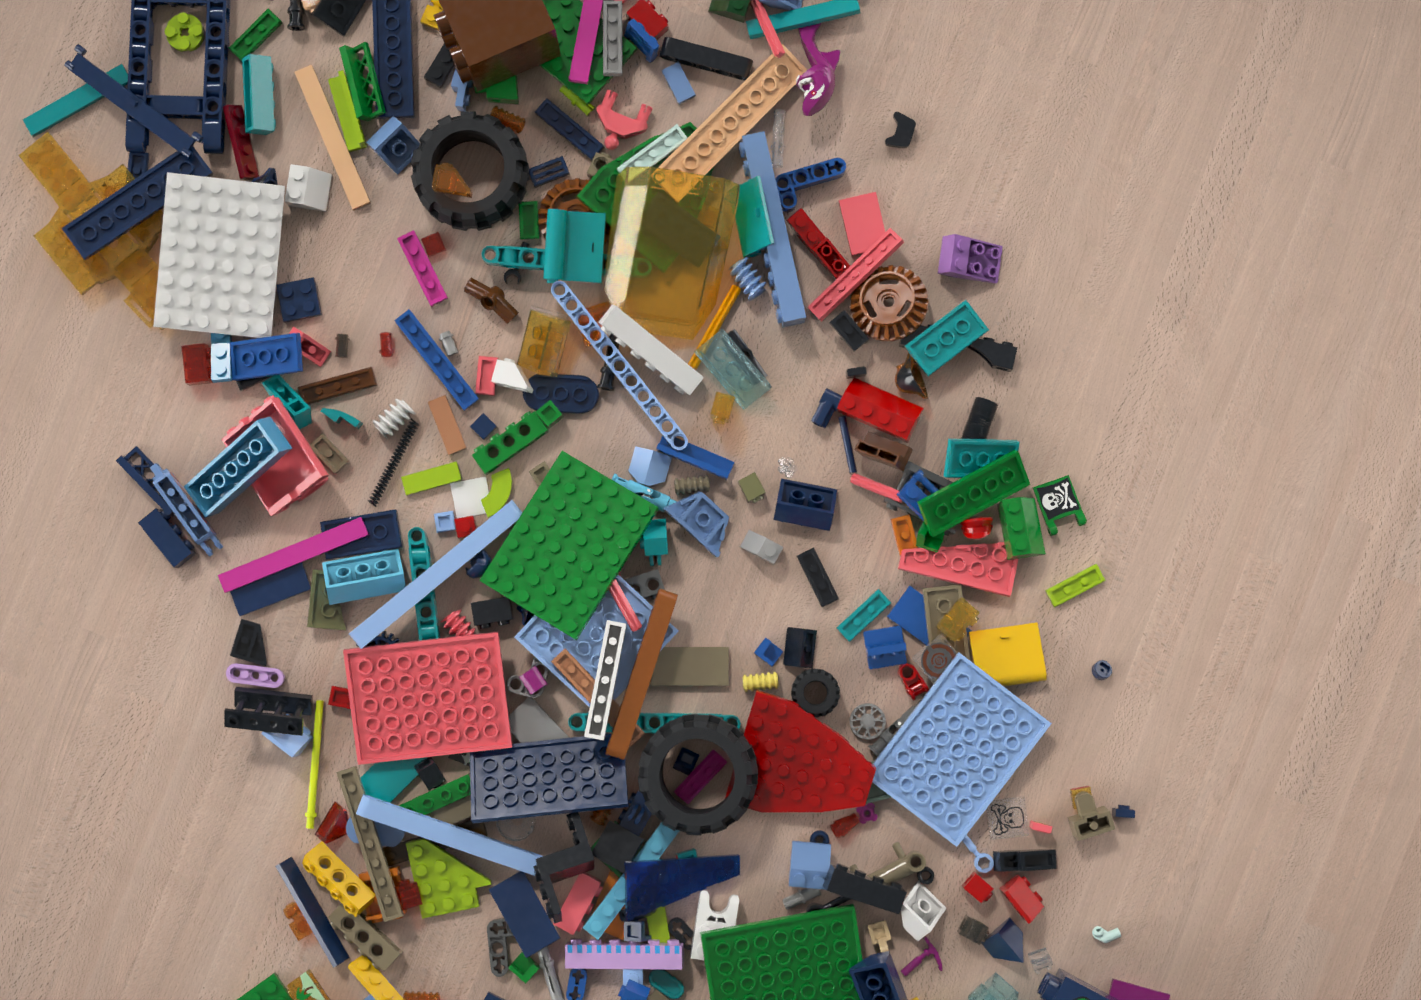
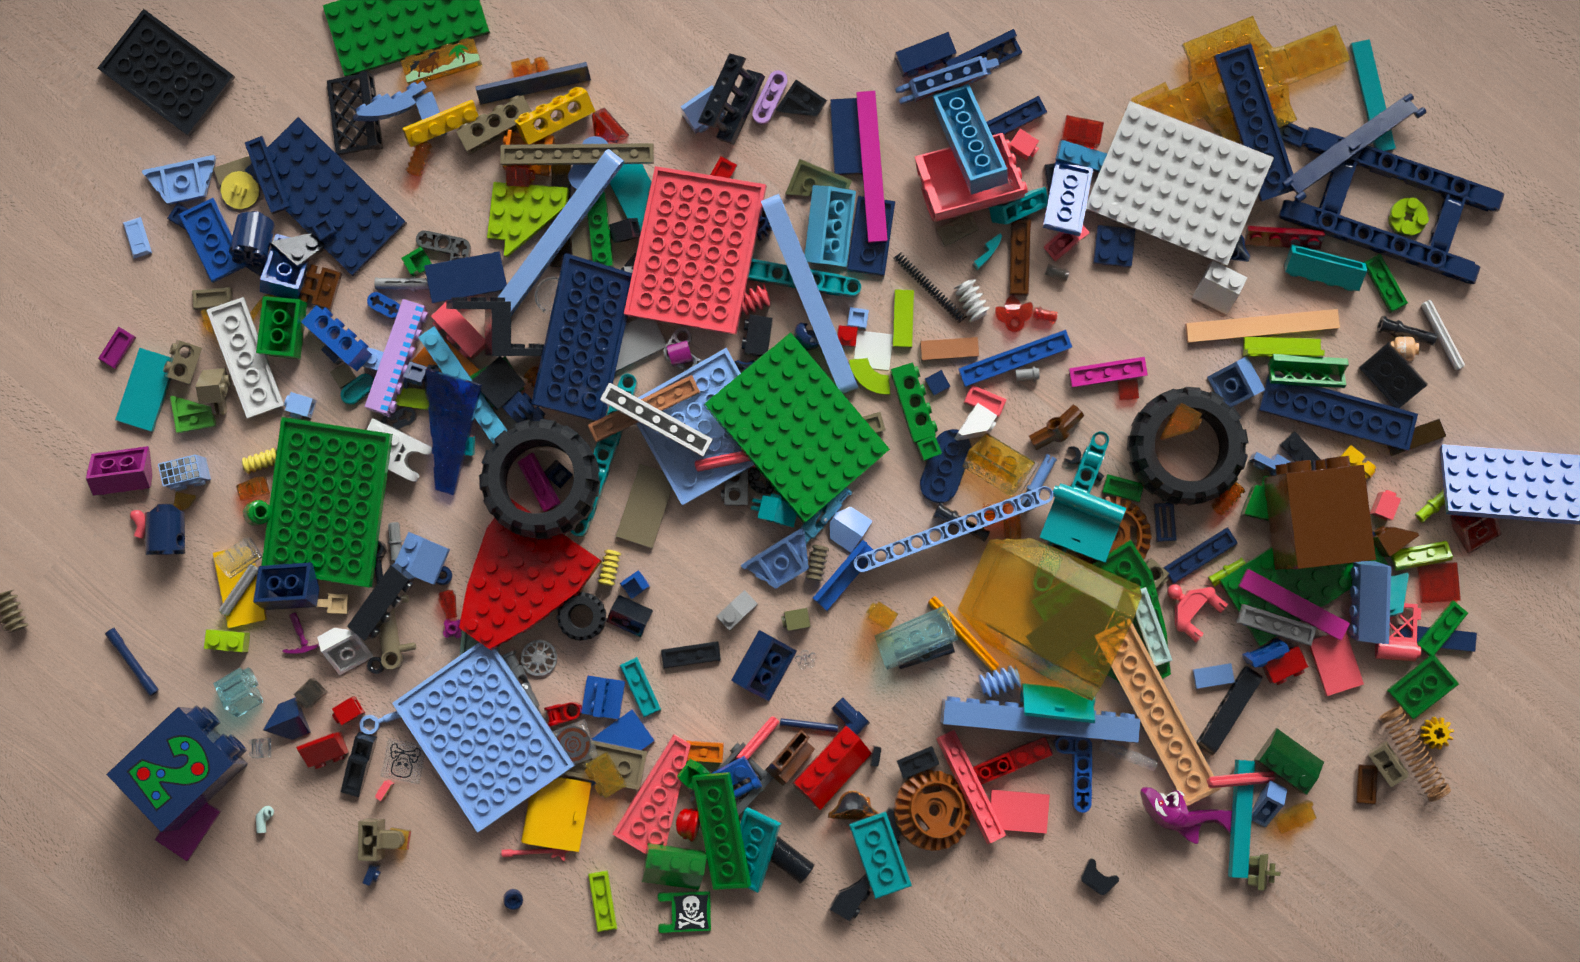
camera: 105 degrees right, 0 degrees up
(201, 430) = (1017, 117): none -> dark blue plate
(226, 415) = (1024, 145): none -> coral brick
(310, 814) = (623, 109): neon yellow bar -> none
(391, 374) = (1014, 311): none -> clear red plate
(545, 301) = (1039, 478): none -> medium blue pin
(637, 565) = (758, 486): none -> black gear
(641, 674) = (652, 456): dark orange beam -> none
(650, 349) = (960, 563): white brick -> none
(969, 259) = (951, 904): medium lavender slope -> none
(1059, 687) = (556, 852): none -> coral piece

